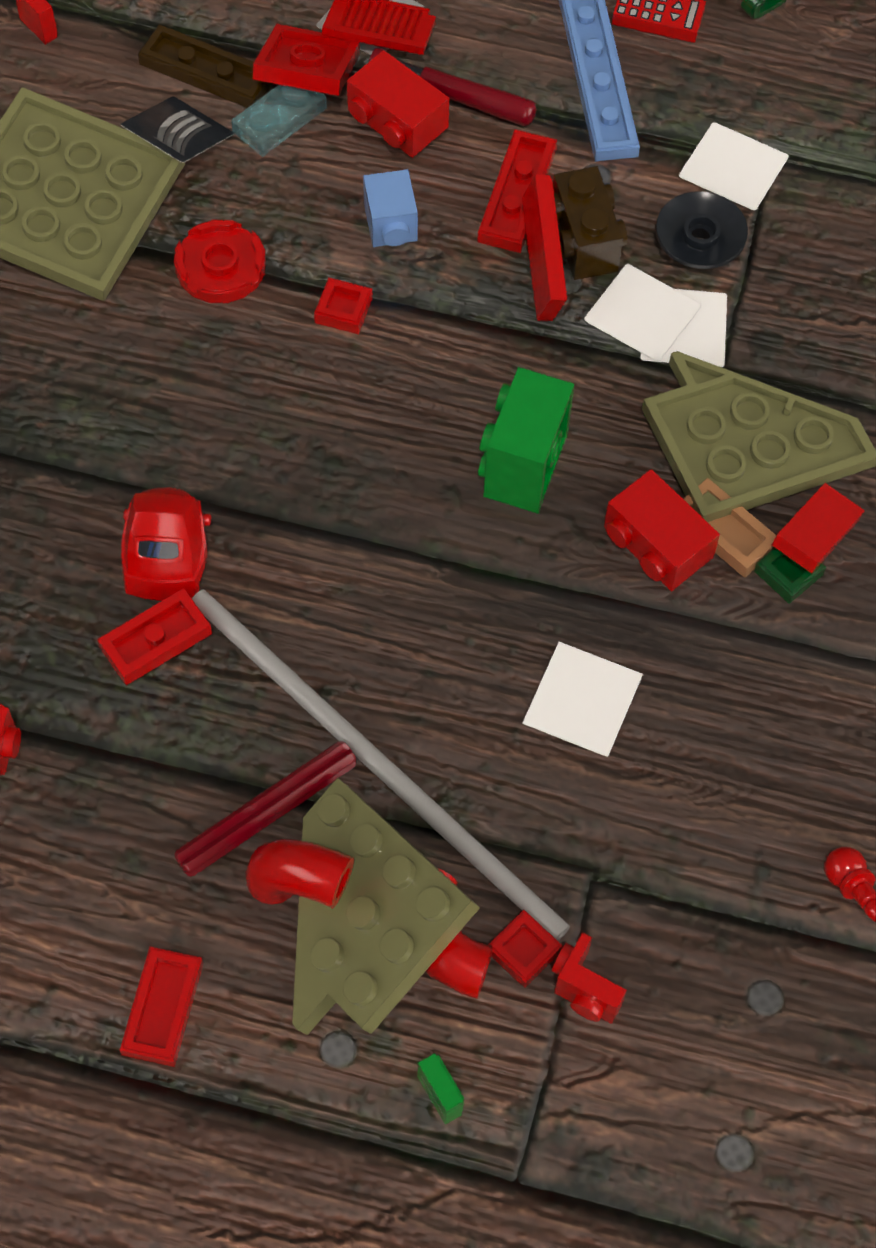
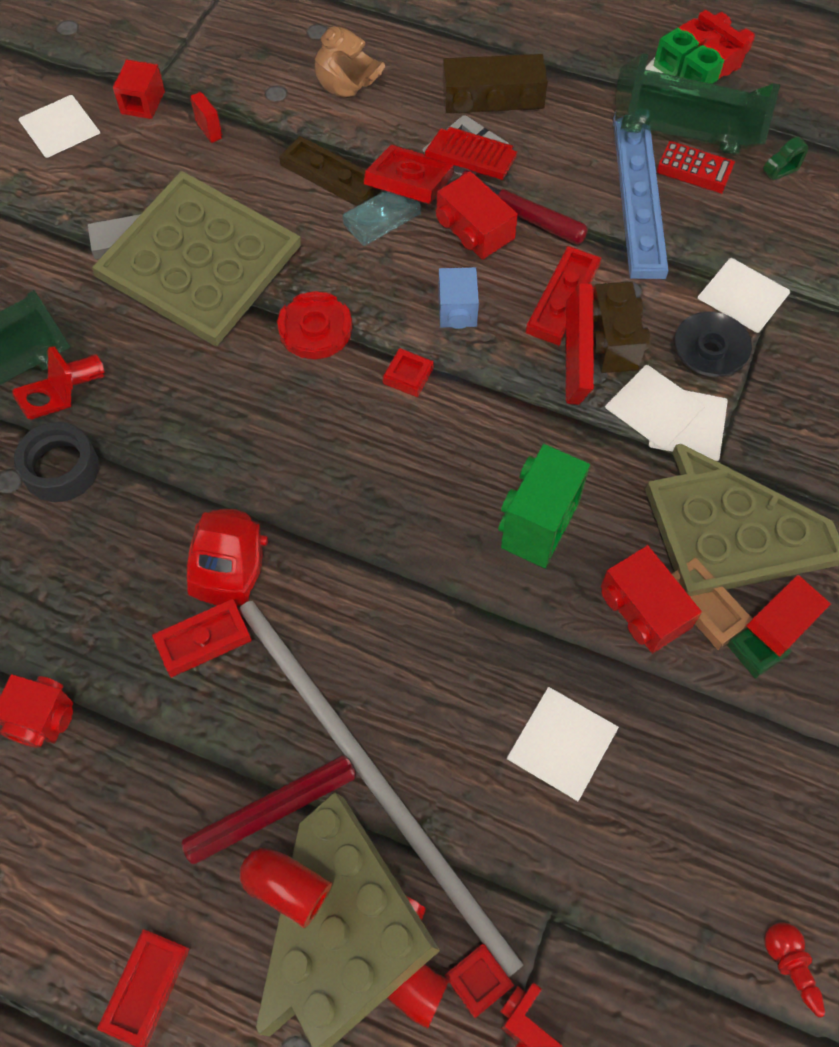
camera: 10 degrees right, 0 degrees up
(177, 129) = (299, 217): black sticker -> none

